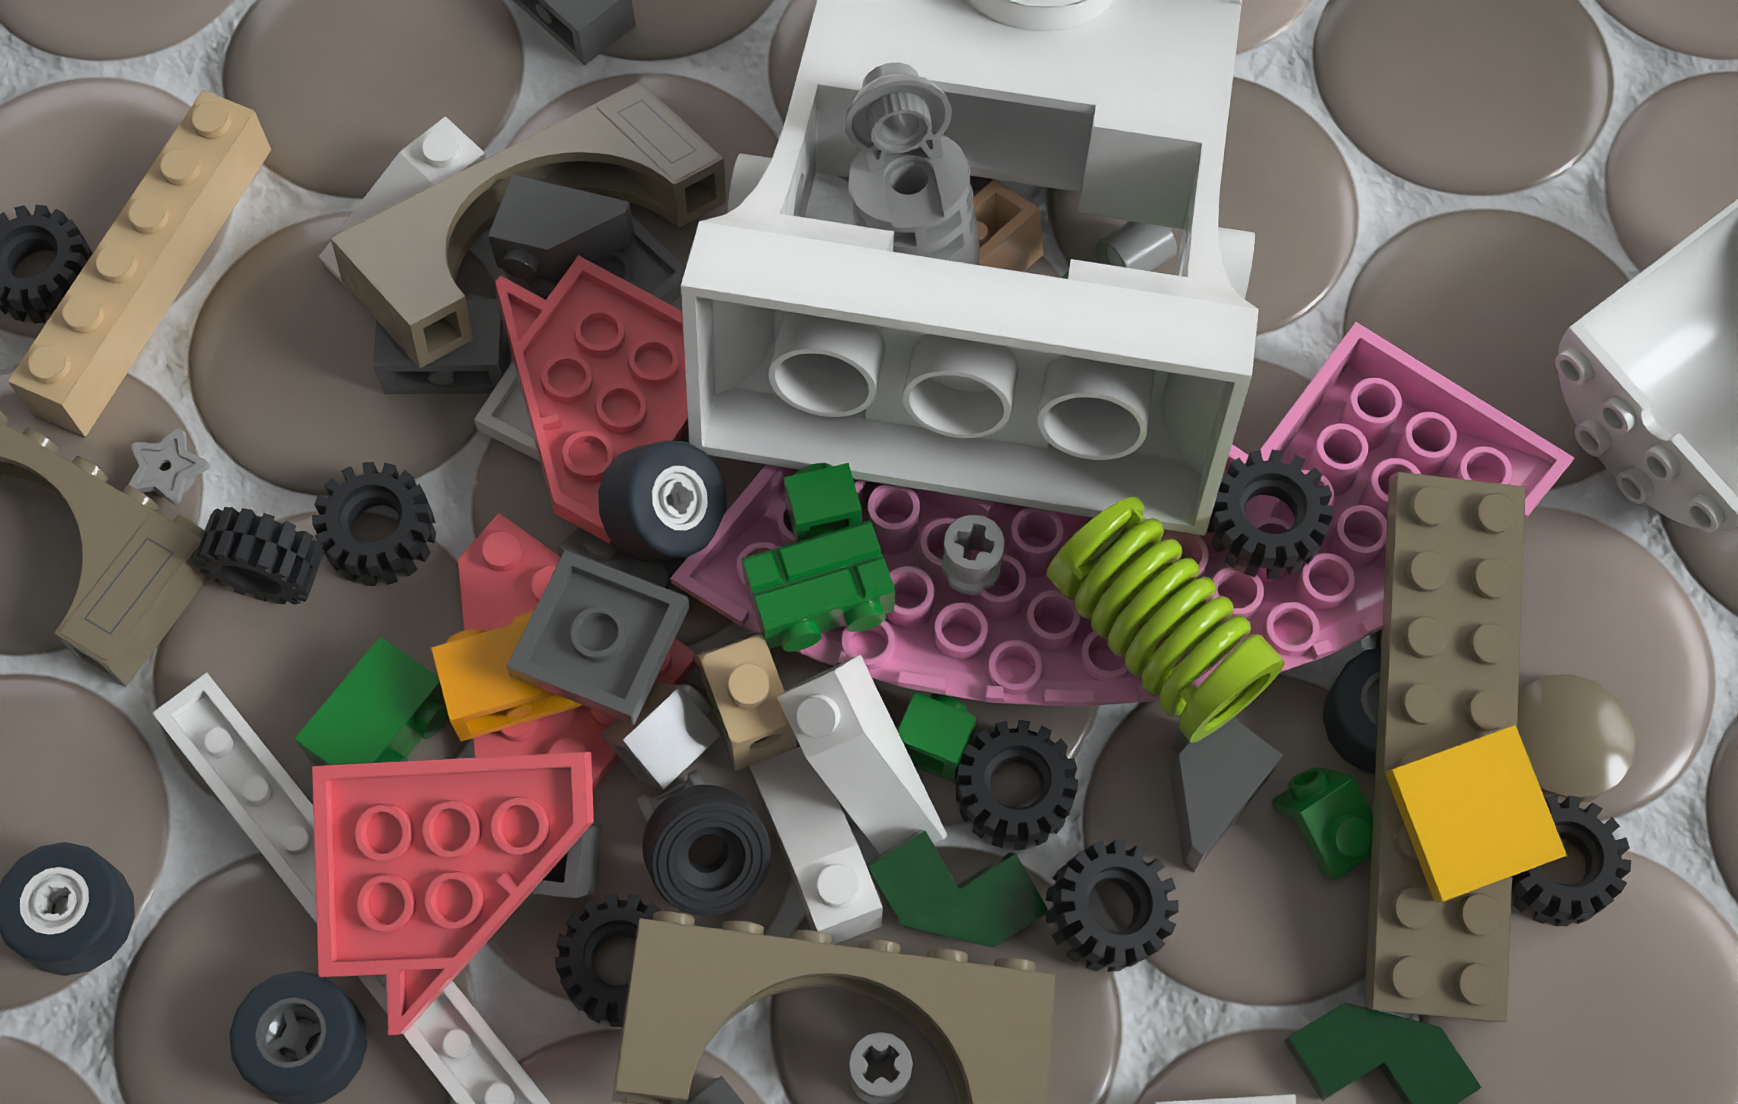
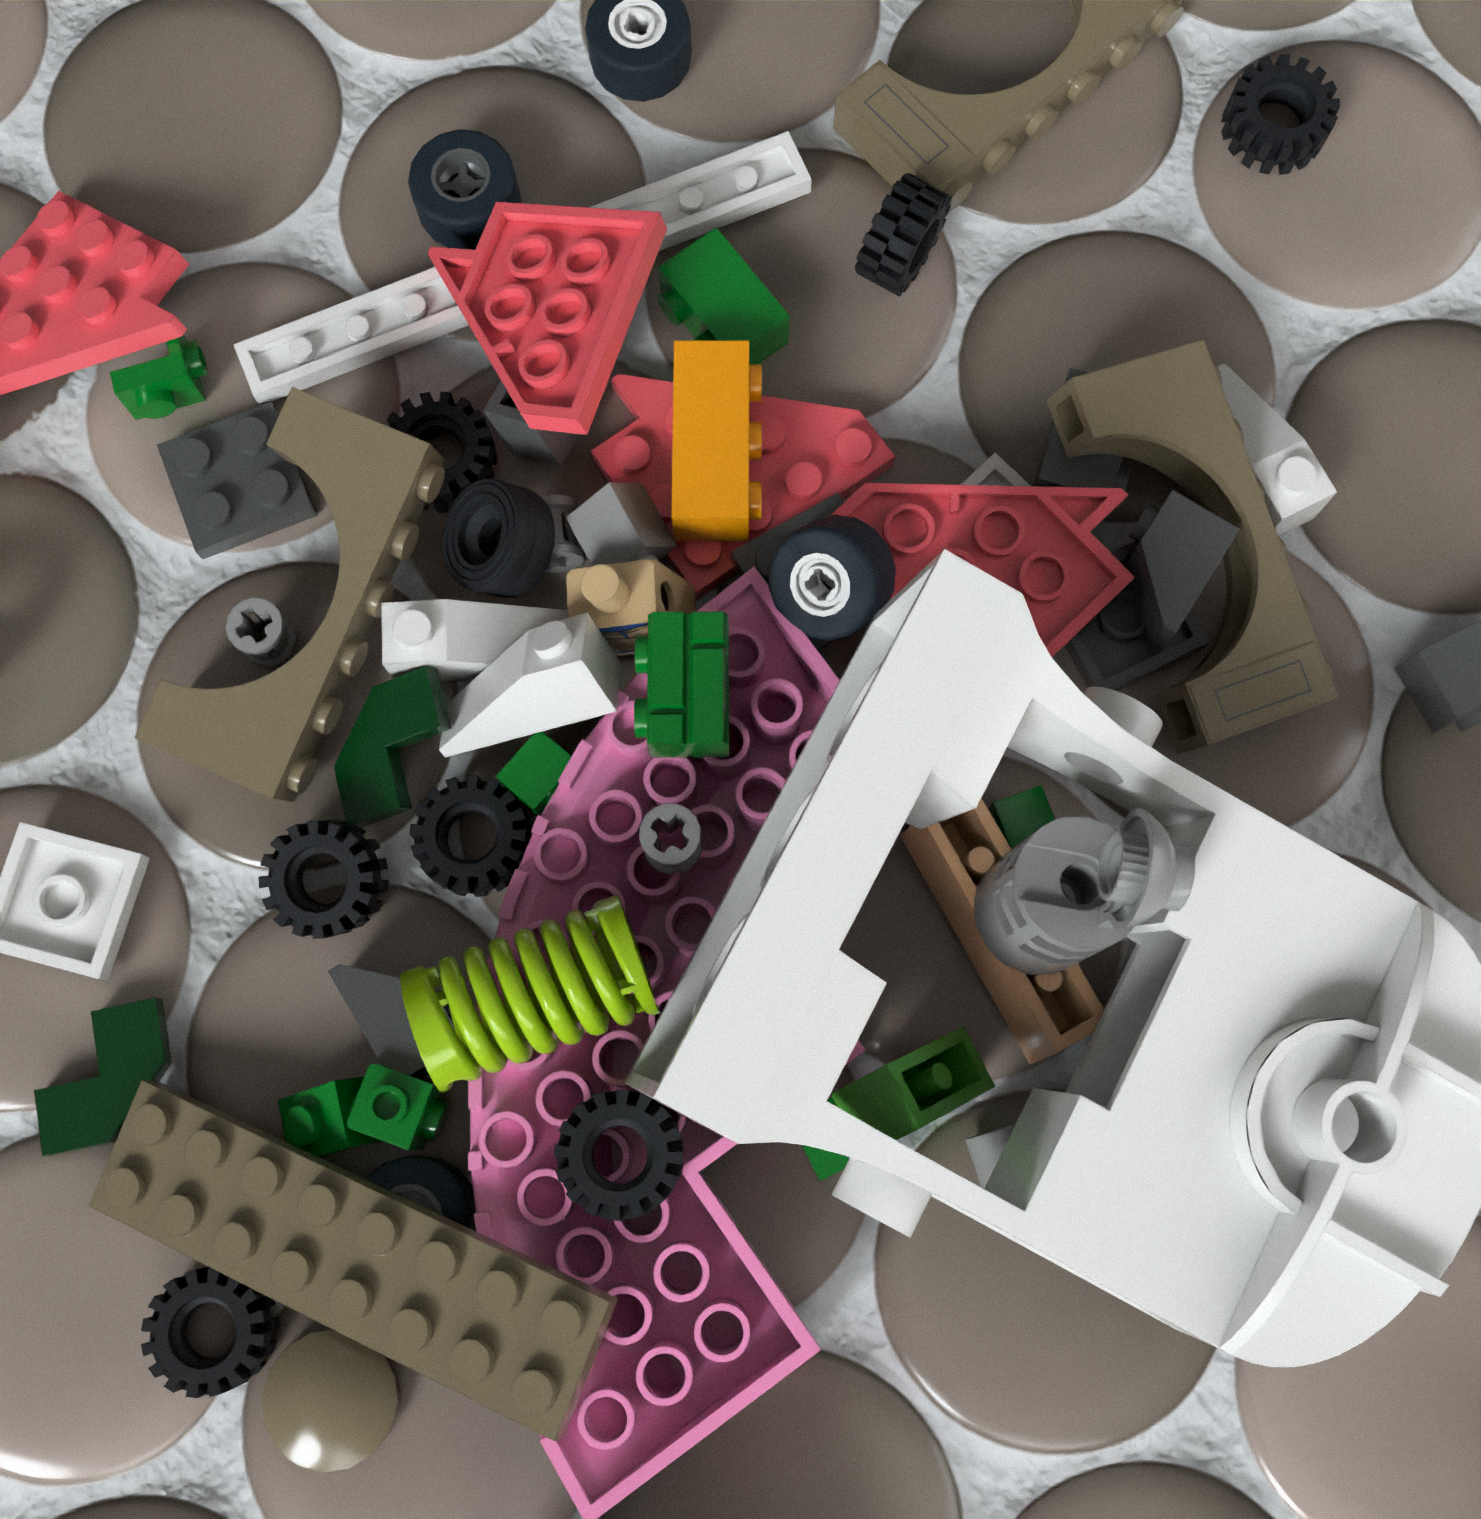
camera: 110 degrees right, 10 degrees up
(141, 264) = (1254, 203): tan brick -> none
(175, 480) = (1030, 205): light grey plate -> none
(358, 494) = (922, 316): black tyre -> none
(598, 637) = (700, 474): dark grey plate -> none
(821, 500) = (771, 713): green plate -> none
(1302, 746) = (398, 1108): none -> green bracket
(1475, 814) = (255, 1241): yellow tile -> none

